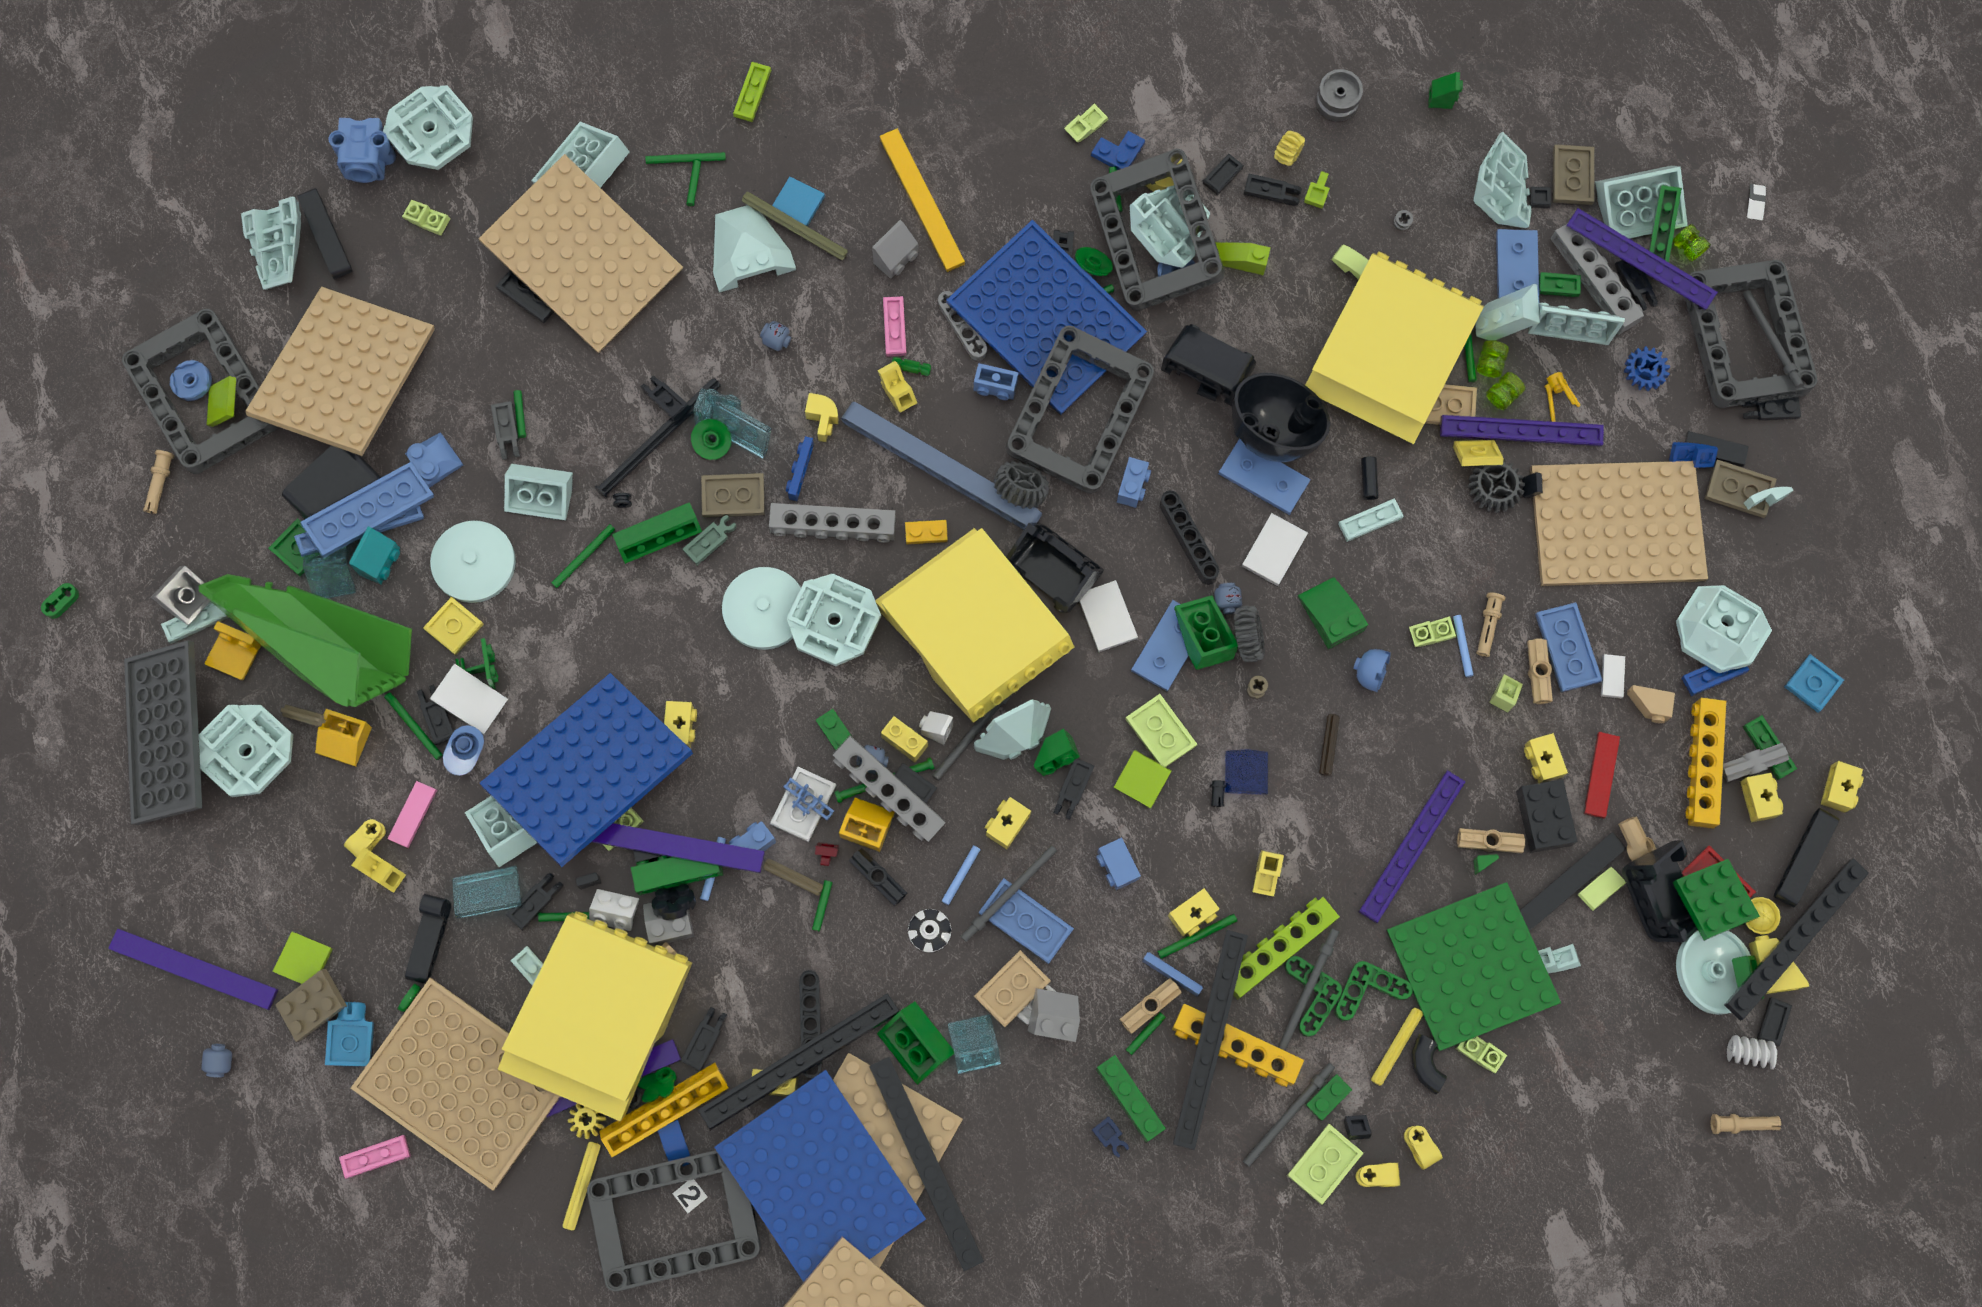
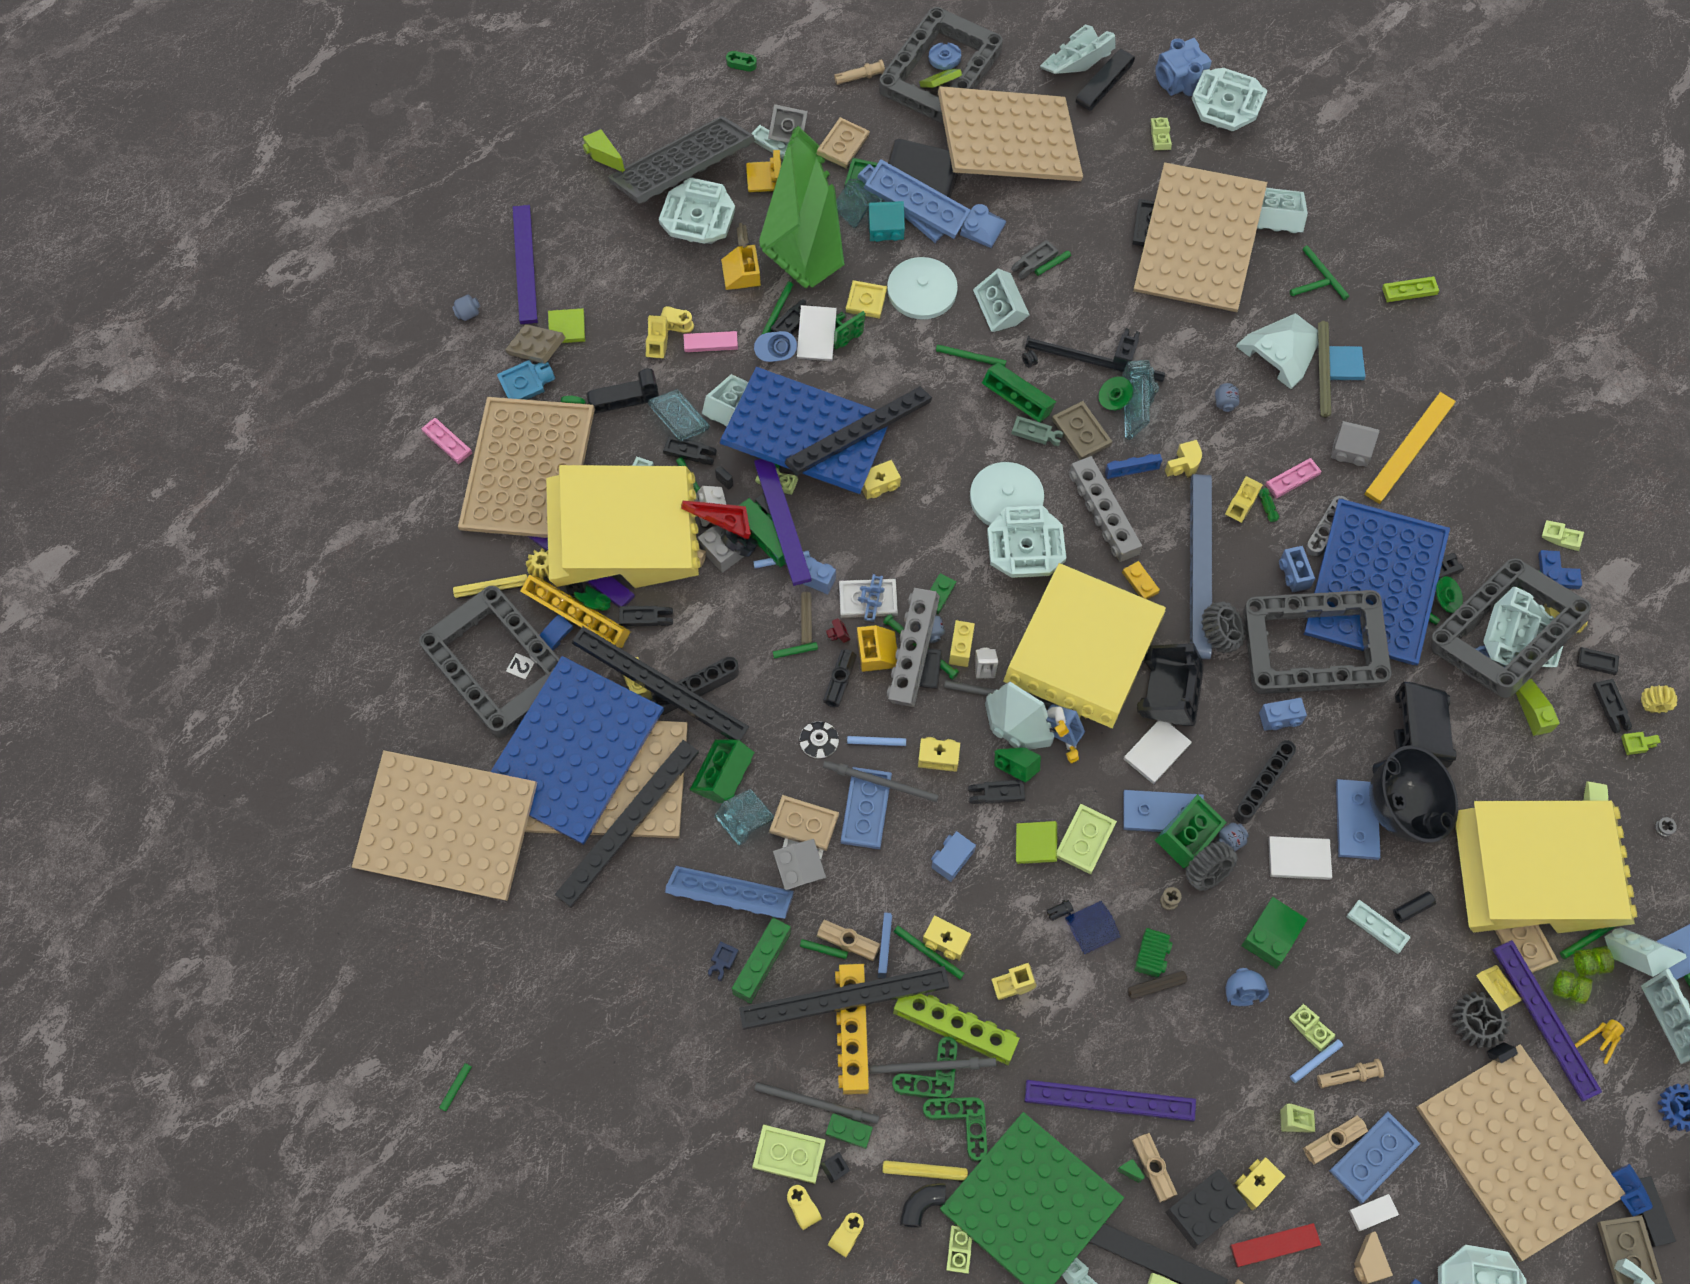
camera: 65 degrees right, 10 degrees down
(93, 814) = (602, 150): none -> lime slope
(239, 547) = (843, 142): none -> tan tile
(618, 717) = (857, 431): none -> black plate
(645, 902) = (729, 517): none -> red wing
(1045, 688) = (1066, 727): none -> torso
(1048, 1097) = (729, 892): none -> medium blue plate
(1300, 732) = (1152, 953): none -> green brick

